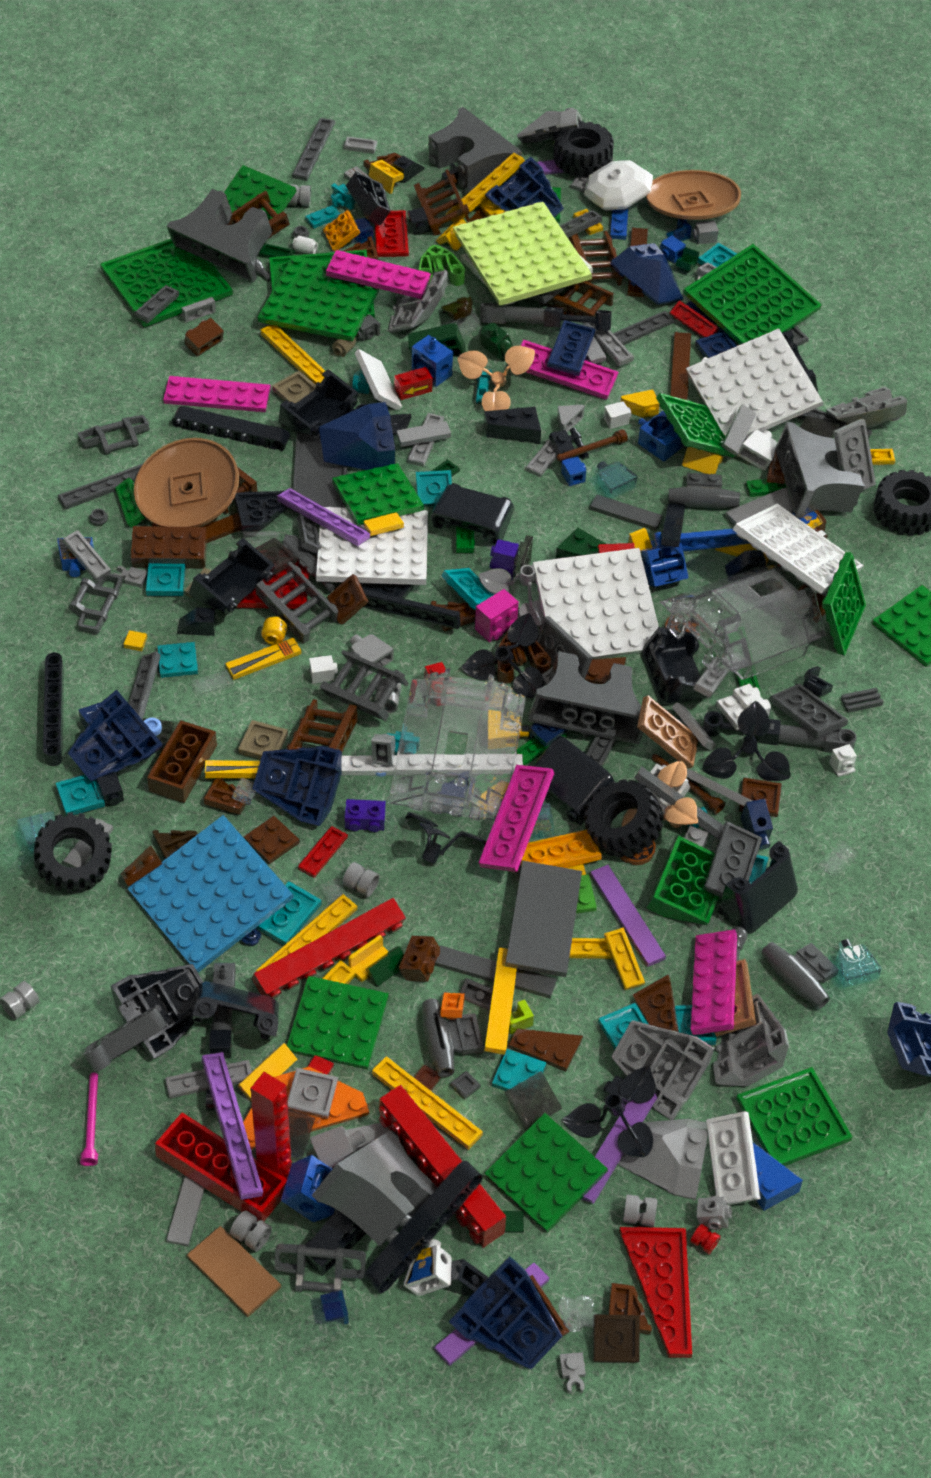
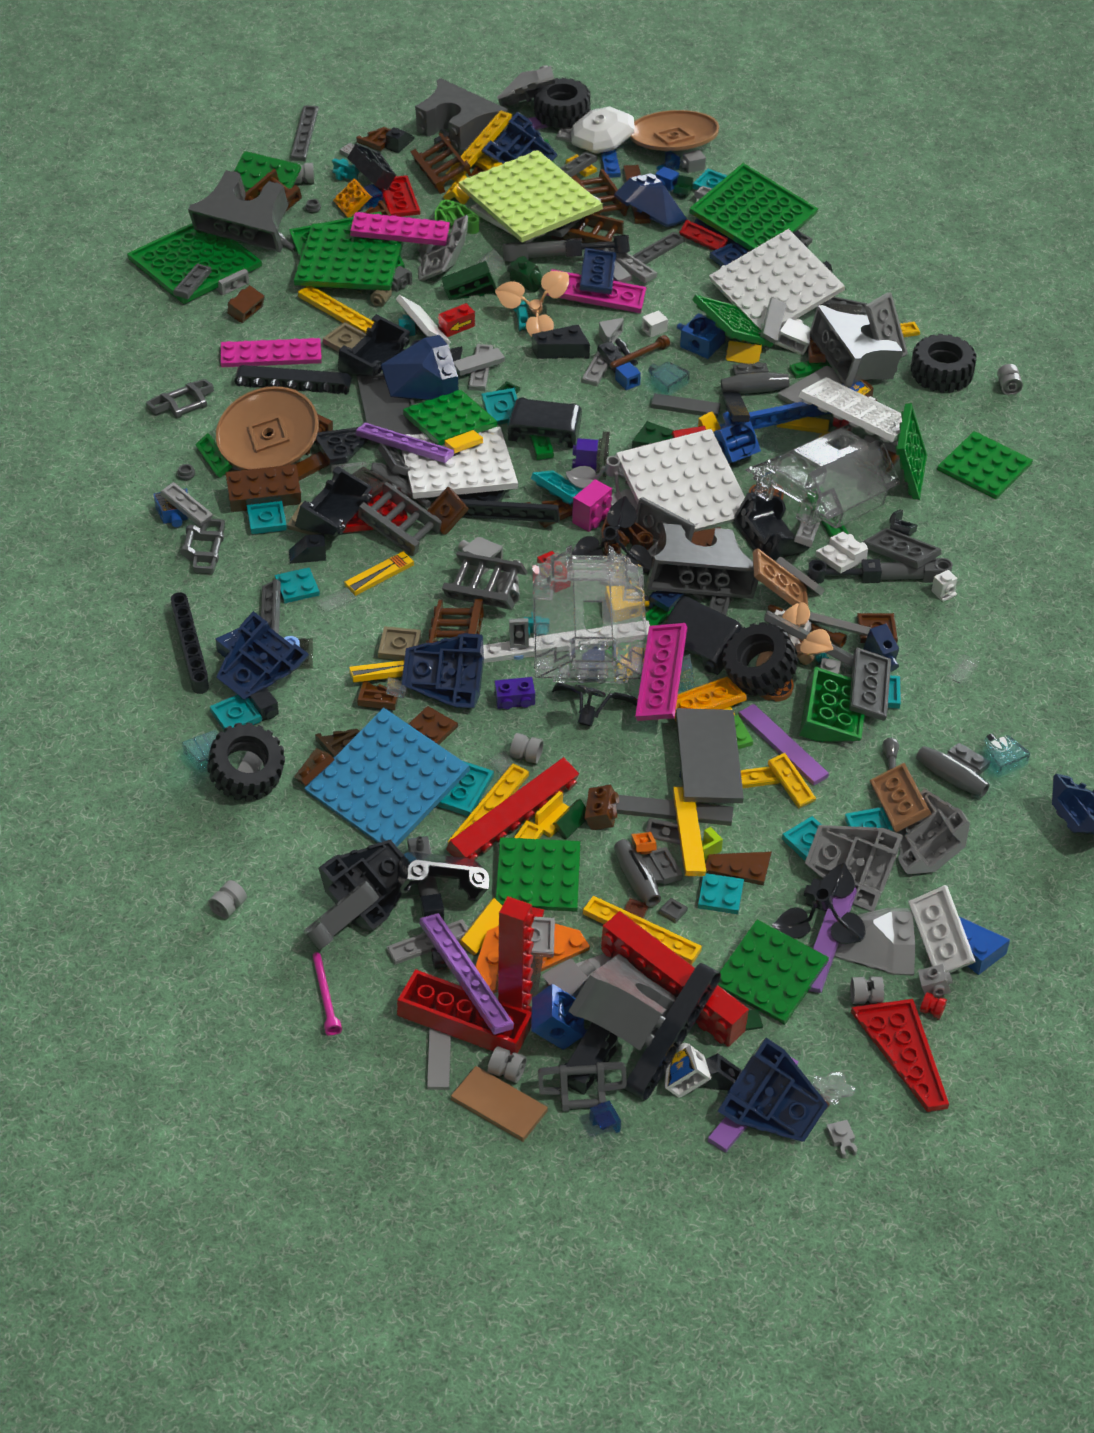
camera: 10 degrees left, 5 degrees down
(97, 488) = (178, 447): dark grey tile -> none
(133, 577) = (233, 519): light grey plate -> none
(135, 640) = (251, 574): yellow tile -> none
(182, 761) = (327, 670): reddish brown brick -> none
(251, 941) = (436, 814): dark blue plate -> none
(274, 251) = (286, 224): dark green tile -> none
(274, 630) = (383, 546): yellow head -> none
(305, 245) = (320, 215): white brick -> none
(322, 216) = (329, 190): teal plate -> none
(322, 669) = (438, 573): white brick -> none
(322, 852) = (482, 731): red tile -> none
(360, 145) = (348, 125): light grey tile -> none
(385, 174) = (381, 145): yellow panel -> none
(418, 220) = (422, 182): black brick -> none
(434, 357) = (472, 292): blue piece -> none
(458, 309) = (482, 251): dark brown wing -> none
(532, 1099) = (741, 911): clear smoke tile -> none
(616, 1338) = (875, 1101): dark brown tile -> none
(625, 1302) = (877, 1077): reddish brown wing -> none
(642, 403) = (676, 311): yellow slope -> none
(658, 1004) = (832, 810): reddish brown wing -> none
(681, 361) = (700, 272): reddish brown tile -> none
(714, 982) = (881, 786): dark pink plate -> none
(745, 561) = (808, 431): black slope -> none
(751, 721) = (883, 600): black plant -> none
(756, 902) = (901, 712): black windscreen -> none
(794, 1117) = (987, 889): green plate -> none
(860, 697) = (946, 534): dark grey tile -> none
(874, 408) = (891, 282): light grey wedge -> none

